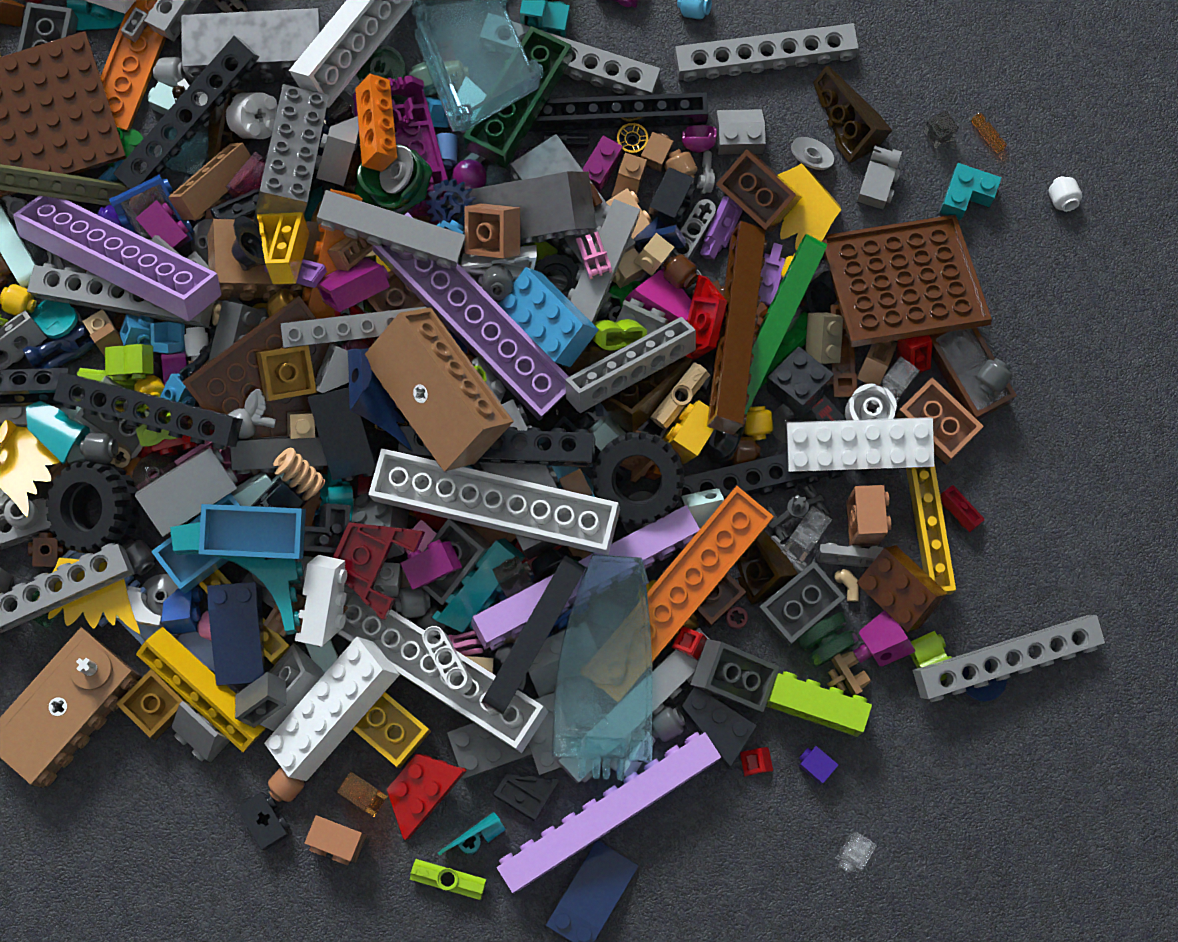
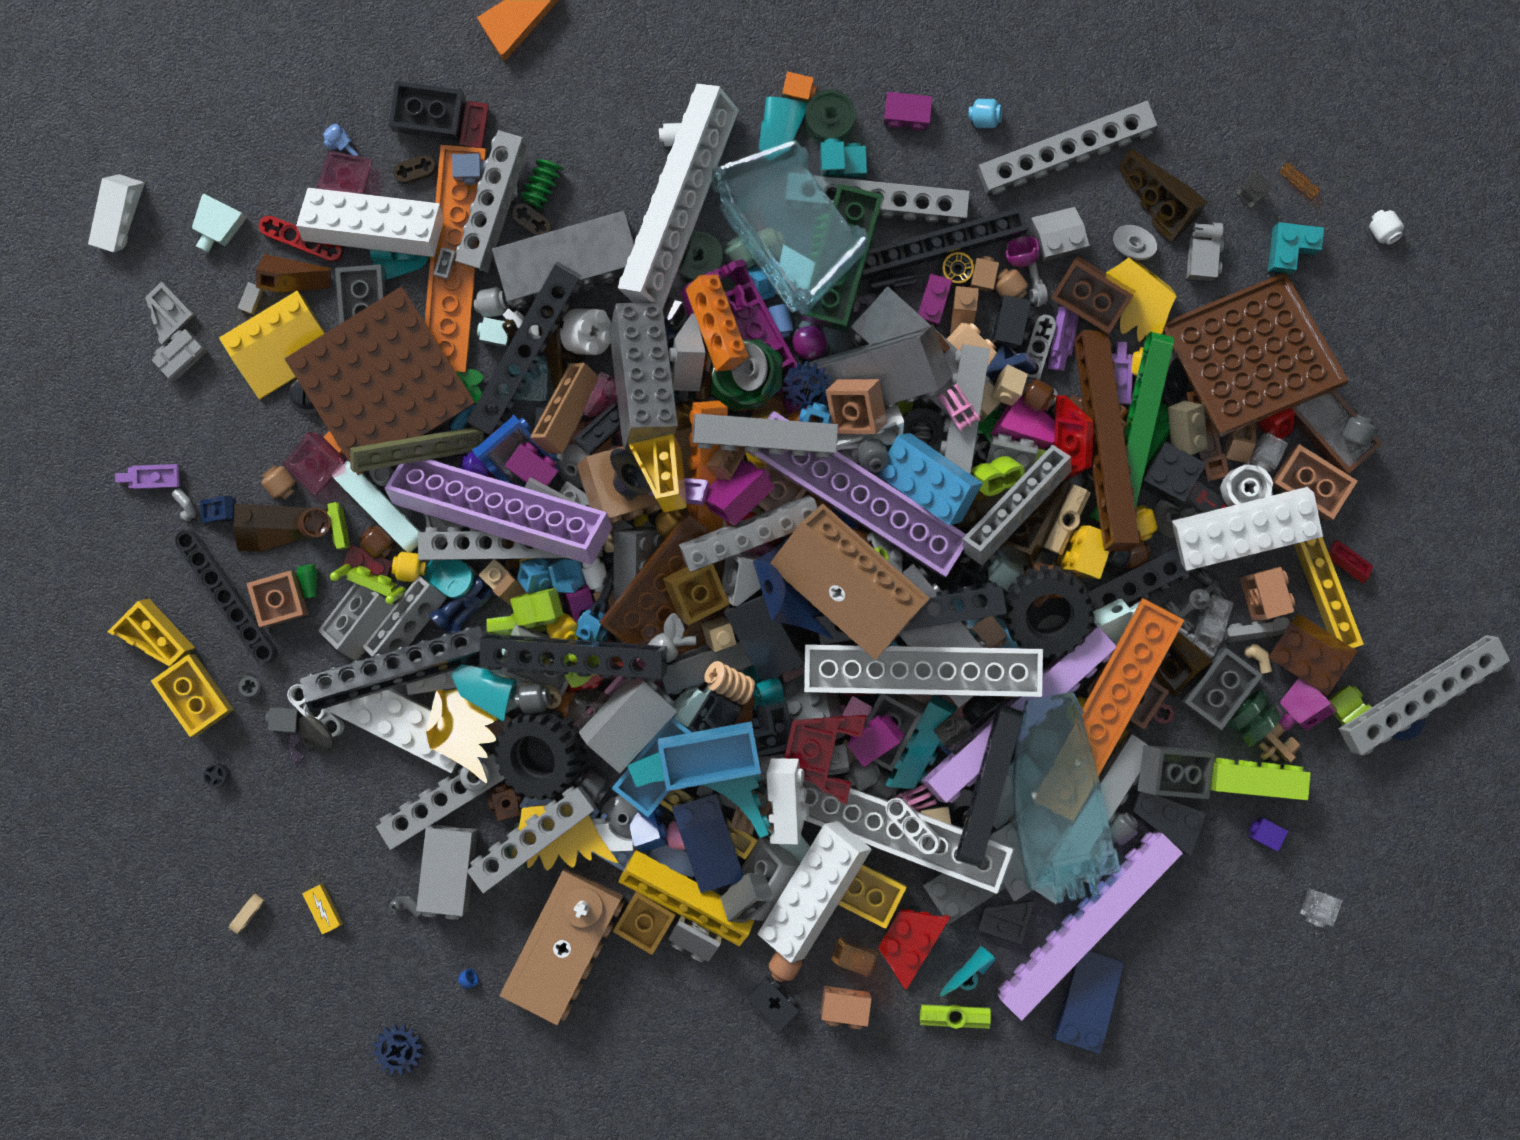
camera: 10 degrees left, 10 degrees up
(690, 642) = (1127, 751): red slope -> none
(756, 761) = (1210, 842): red slope -> none

